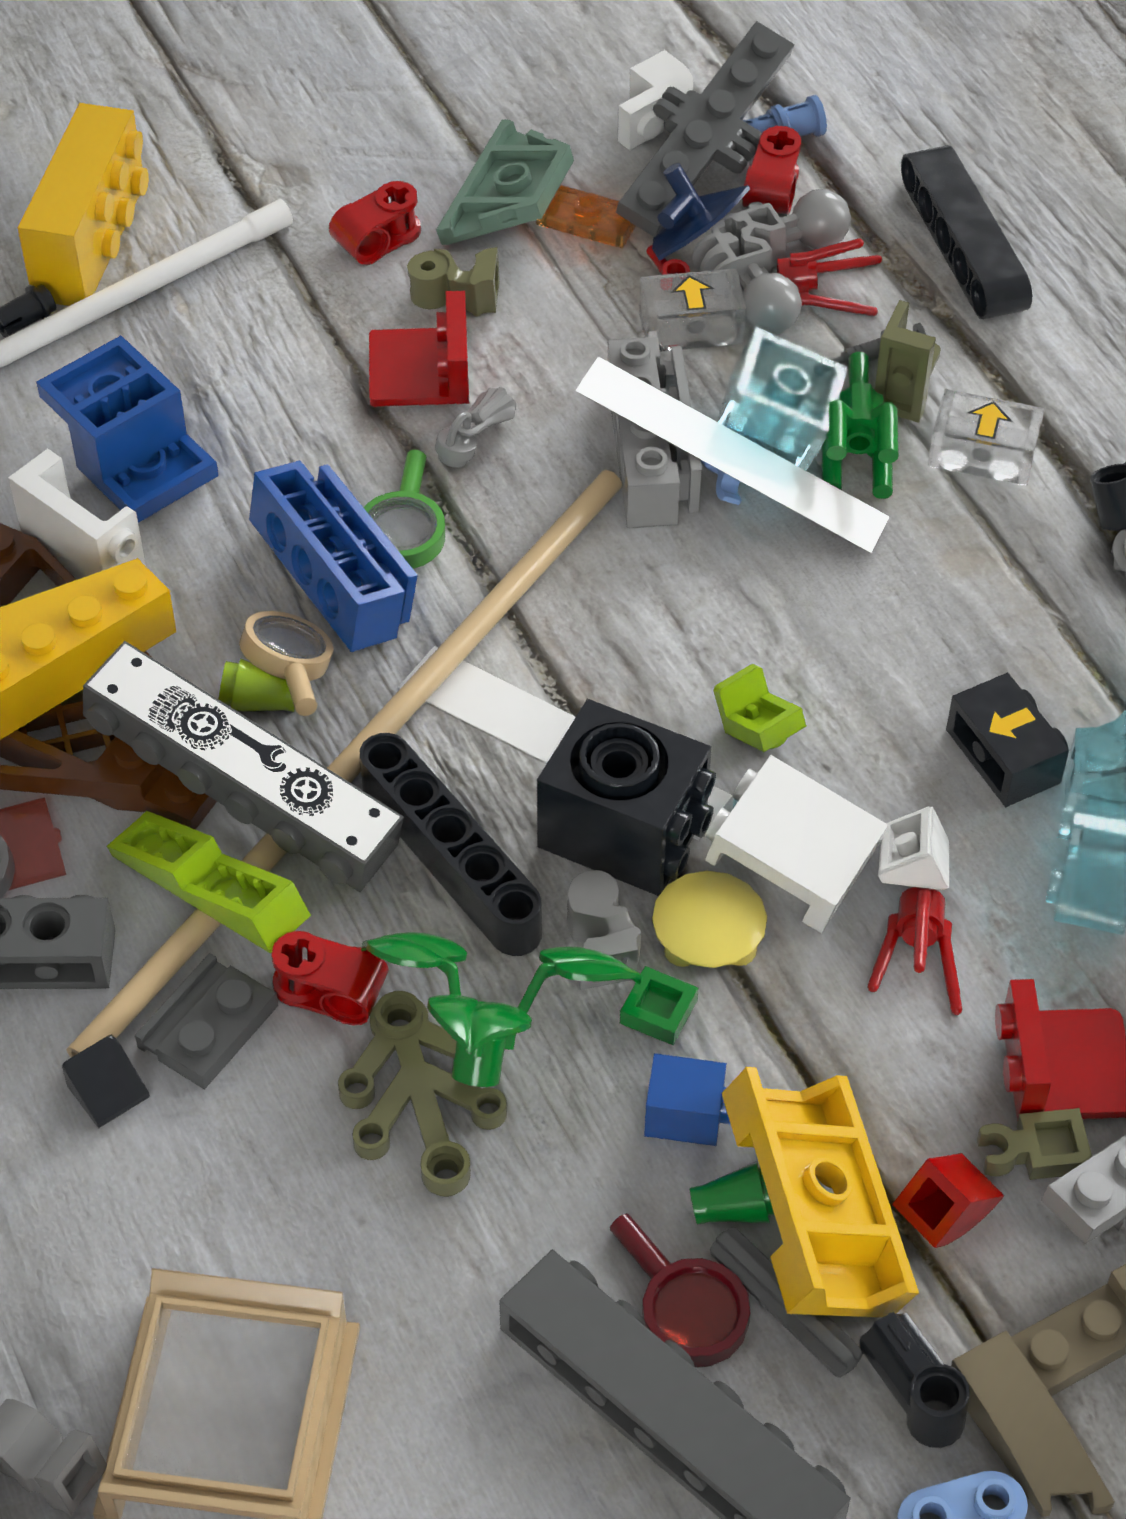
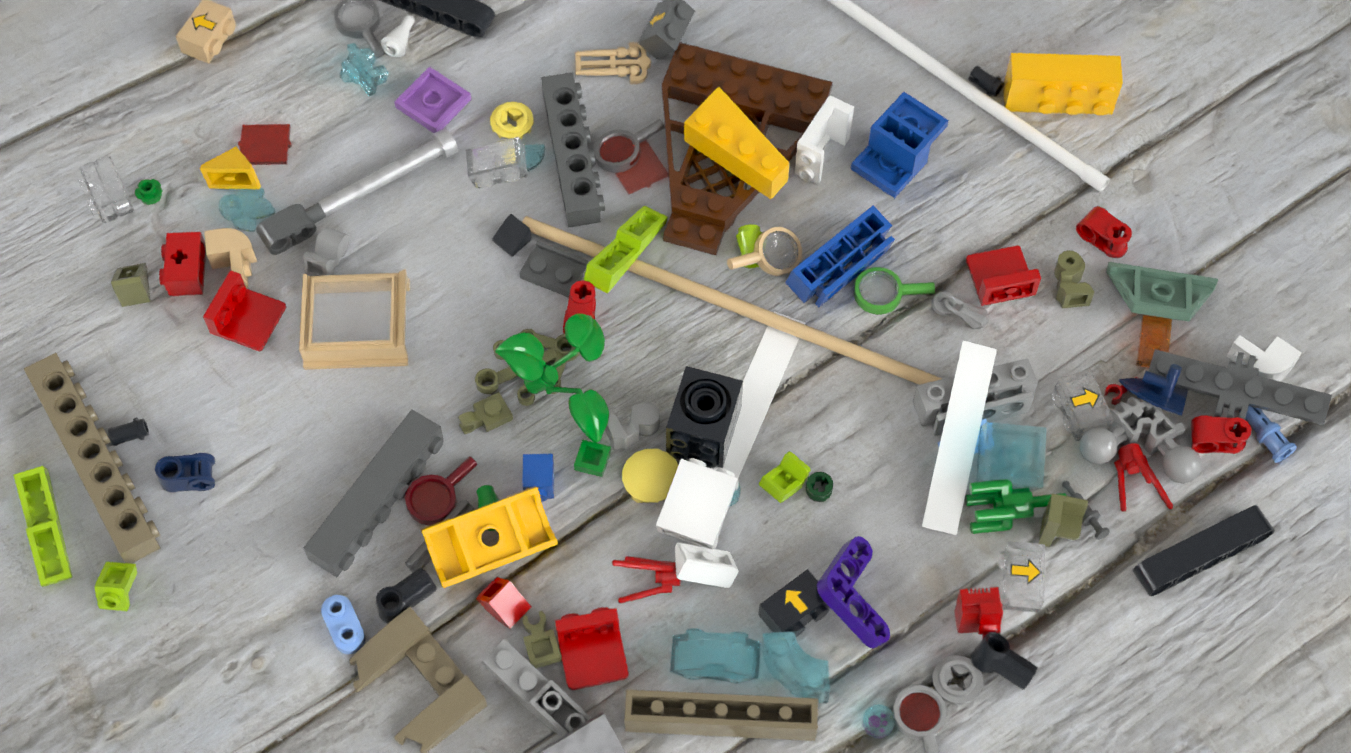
camera: 80 degrees right, 10 degrees up
(241, 766) = (683, 243): brick -> none
(433, 817) = (667, 360): black beam -> none
(519, 1179) = (487, 413): none -> olive plate
(787, 667) = (821, 477): none -> dark green bush
(987, 656) = (843, 588): none -> dark purple beam
(1049, 476) = (978, 611): none -> red piece

